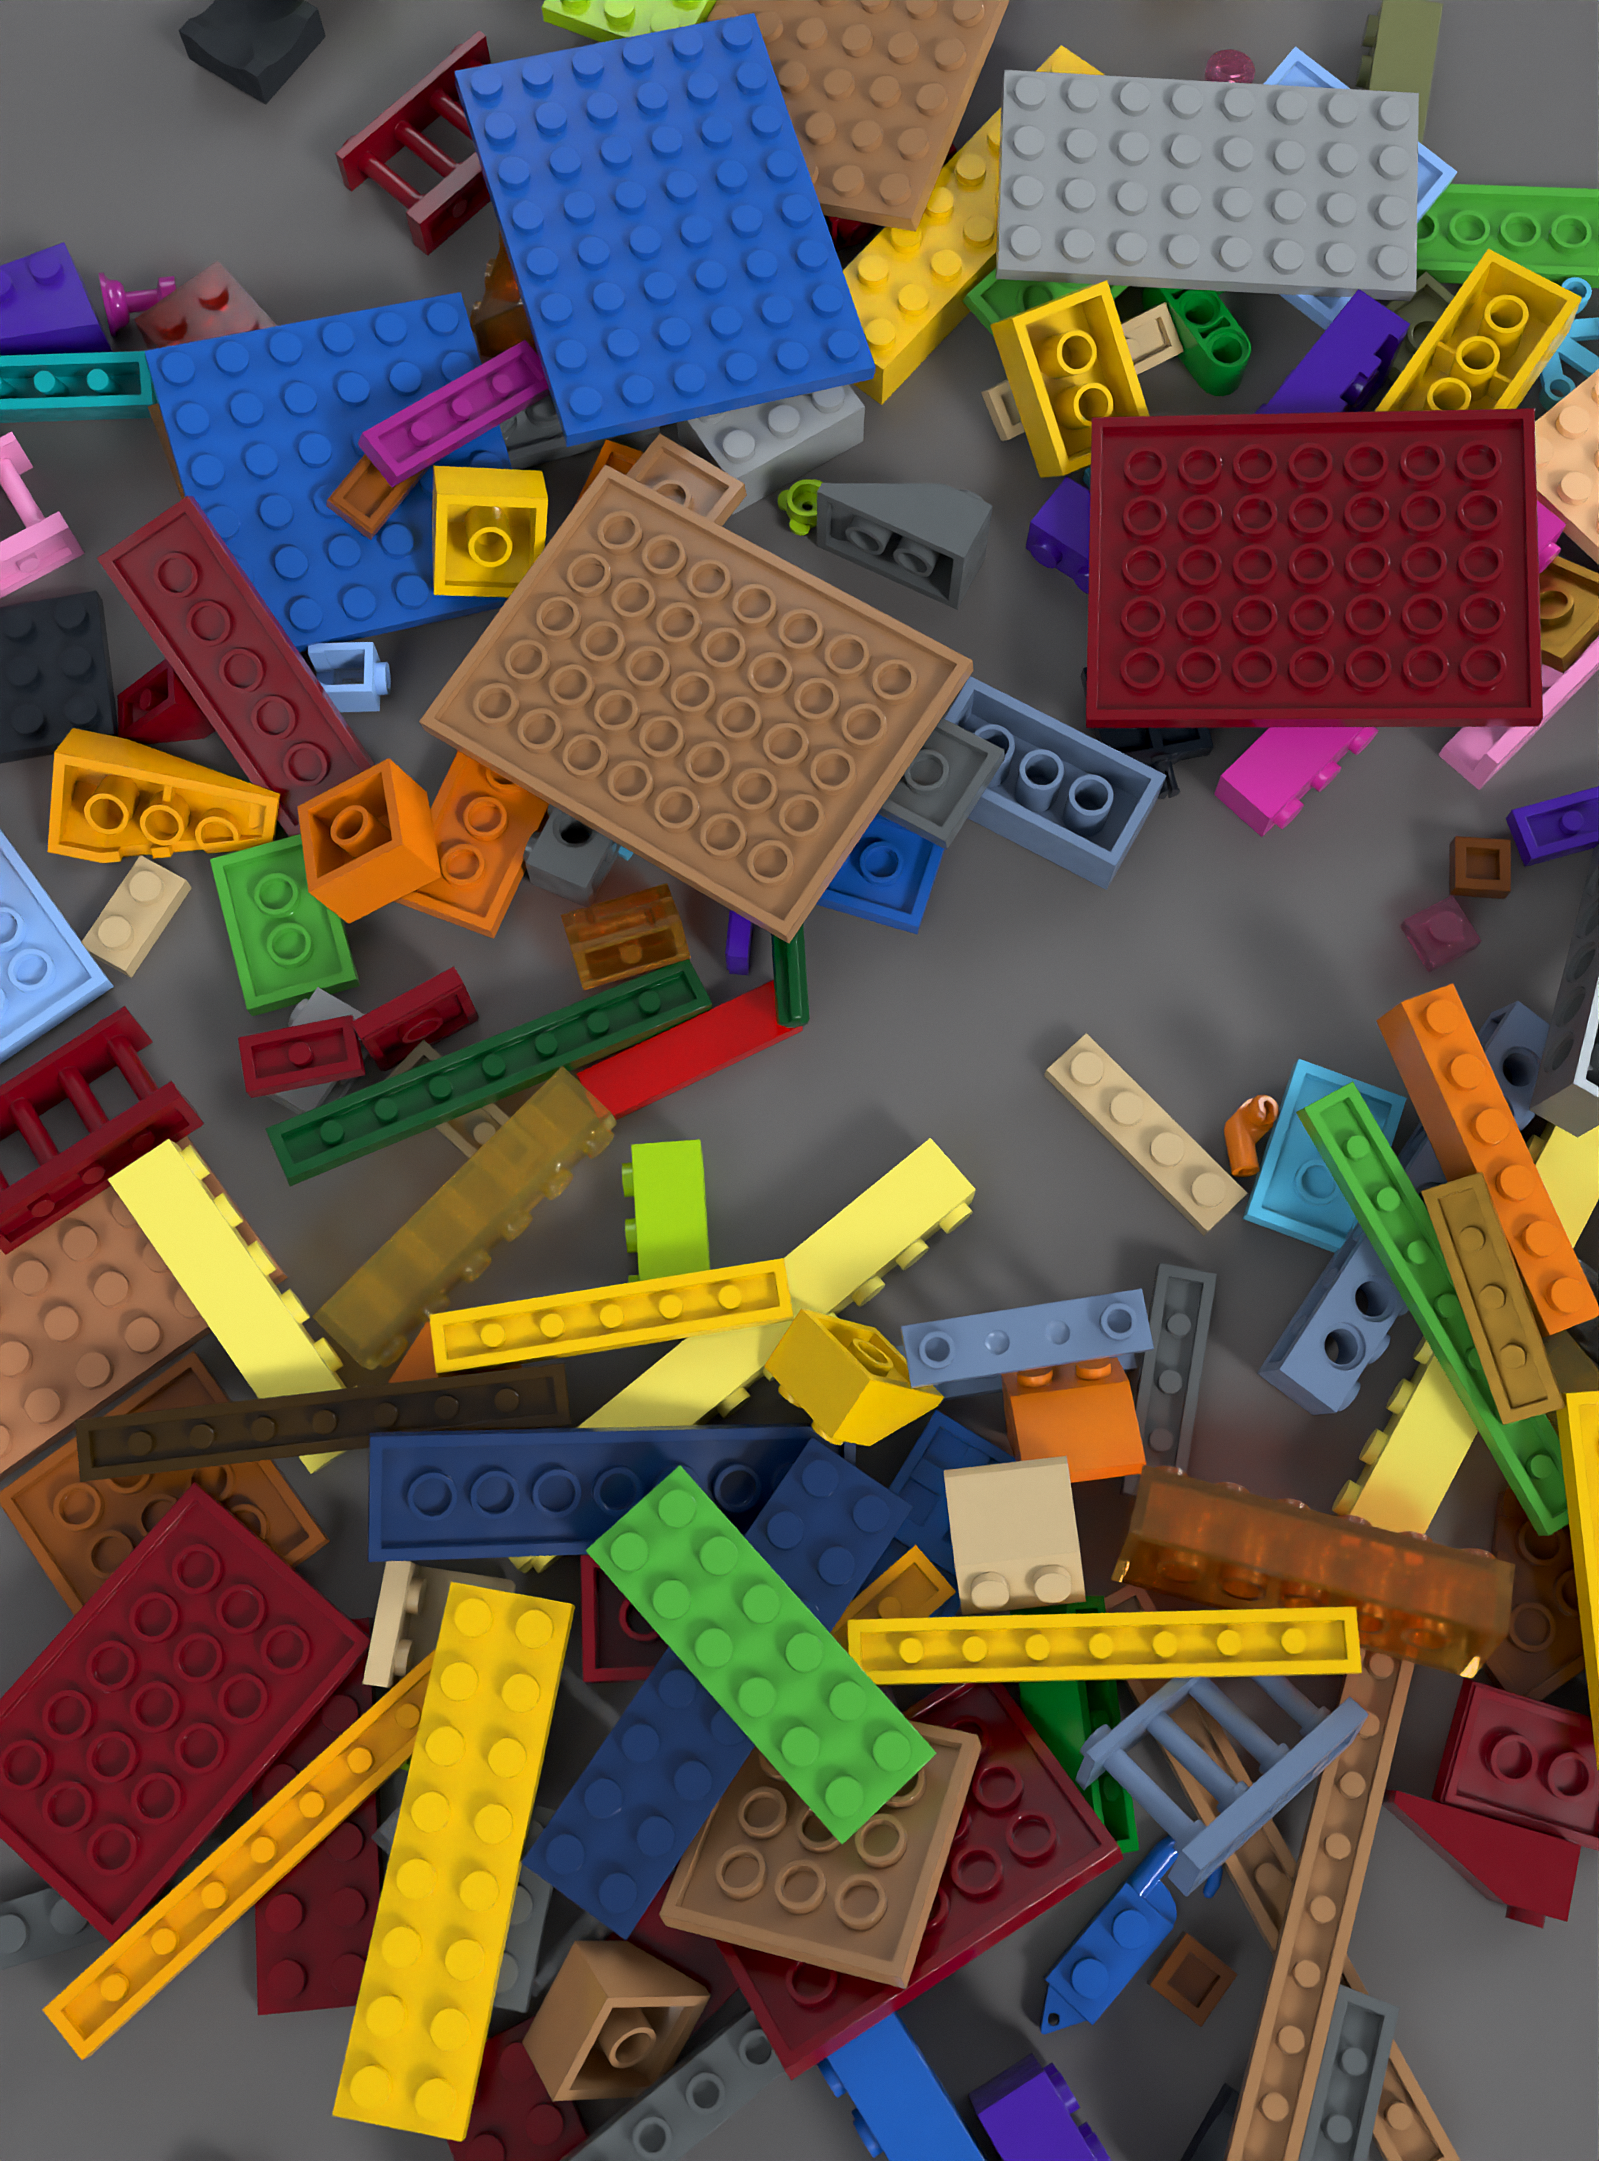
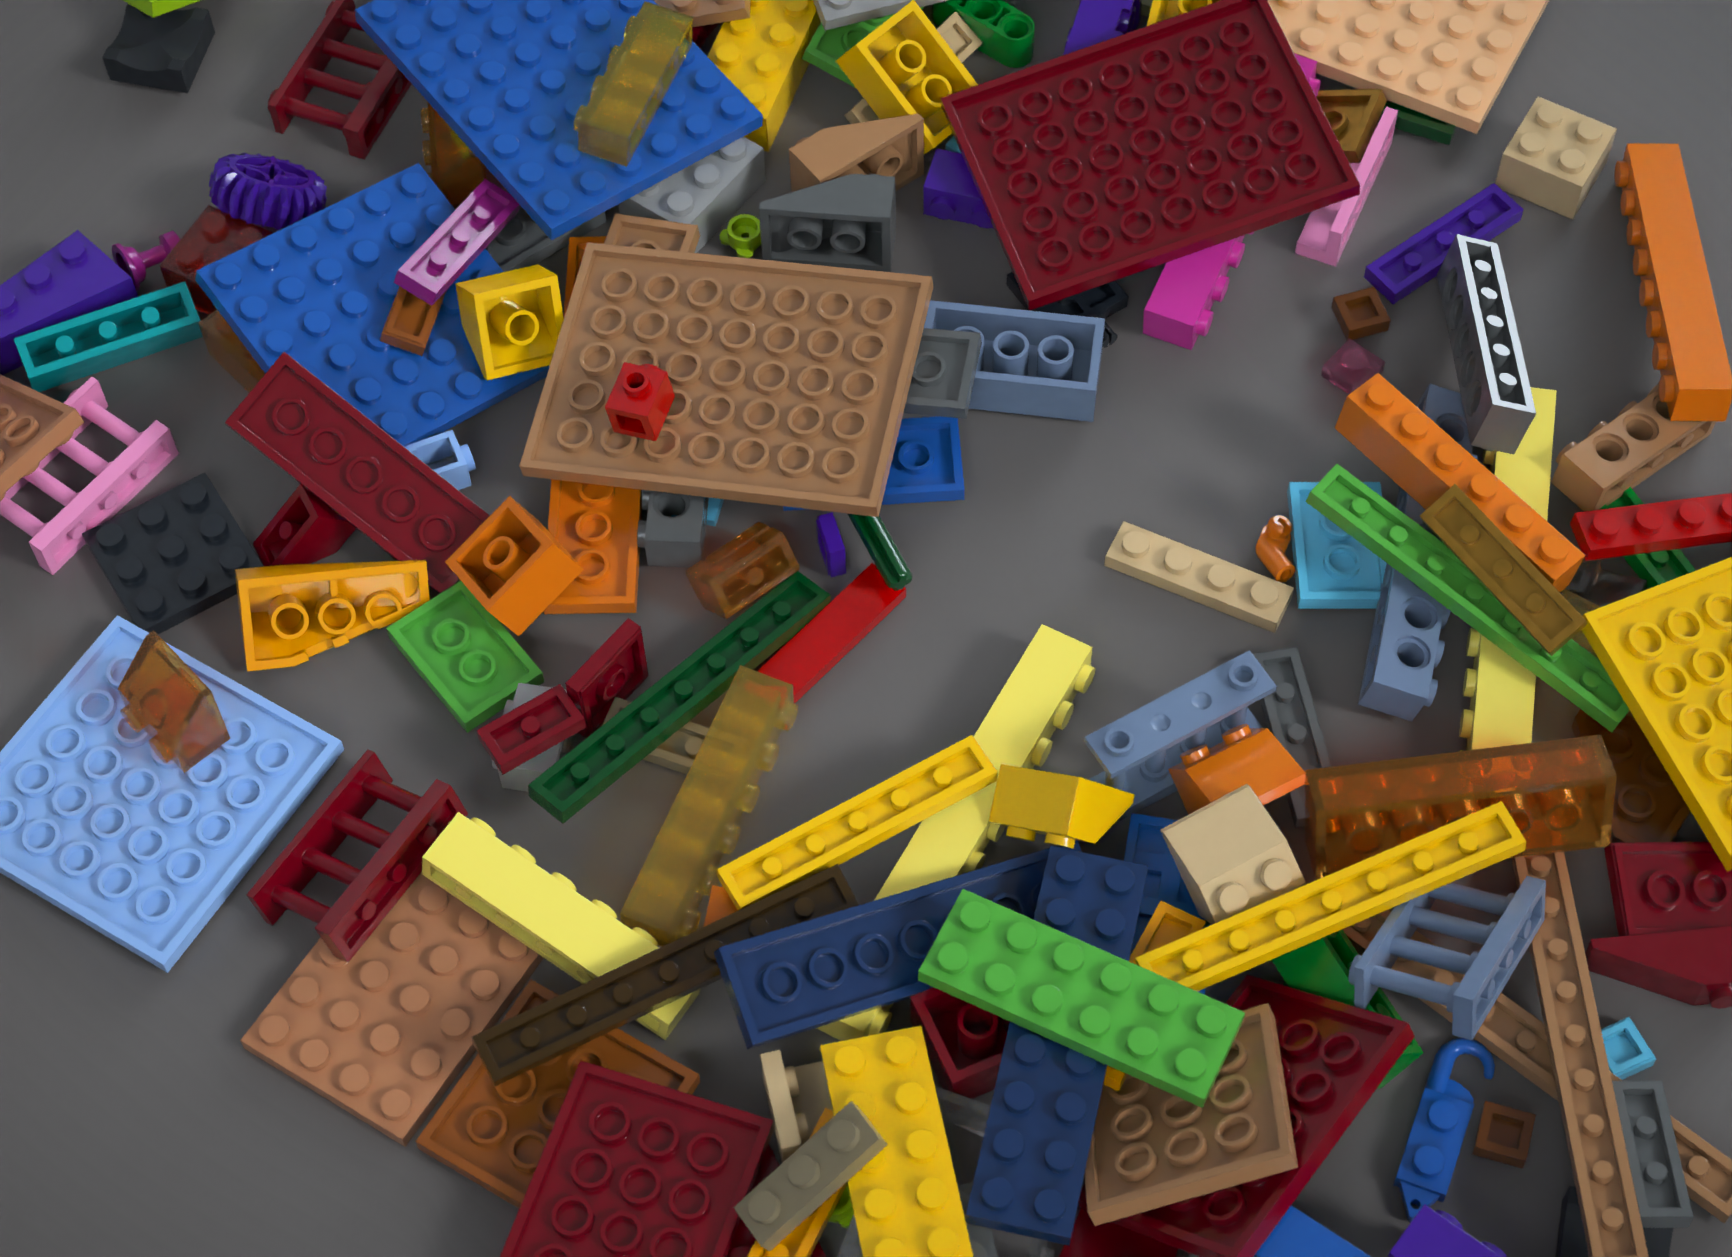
camera: 20 degrees left, 15 degrees down
(136, 916) = (341, 692): tan plate -> none
(288, 264) = (265, 190): none -> dark purple gear
(371, 1742) = (810, 1176): none -> dark tan plate
(574, 696) = (640, 401): none -> red brick
(669, 1209) = (859, 743): lime brick -> none
(732, 279) = (634, 83): none -> clear yellow brick
(988, 457) = (866, 148): none -> medium nougat slope
(1379, 1926) = (1626, 1049): none -> medium azure tile

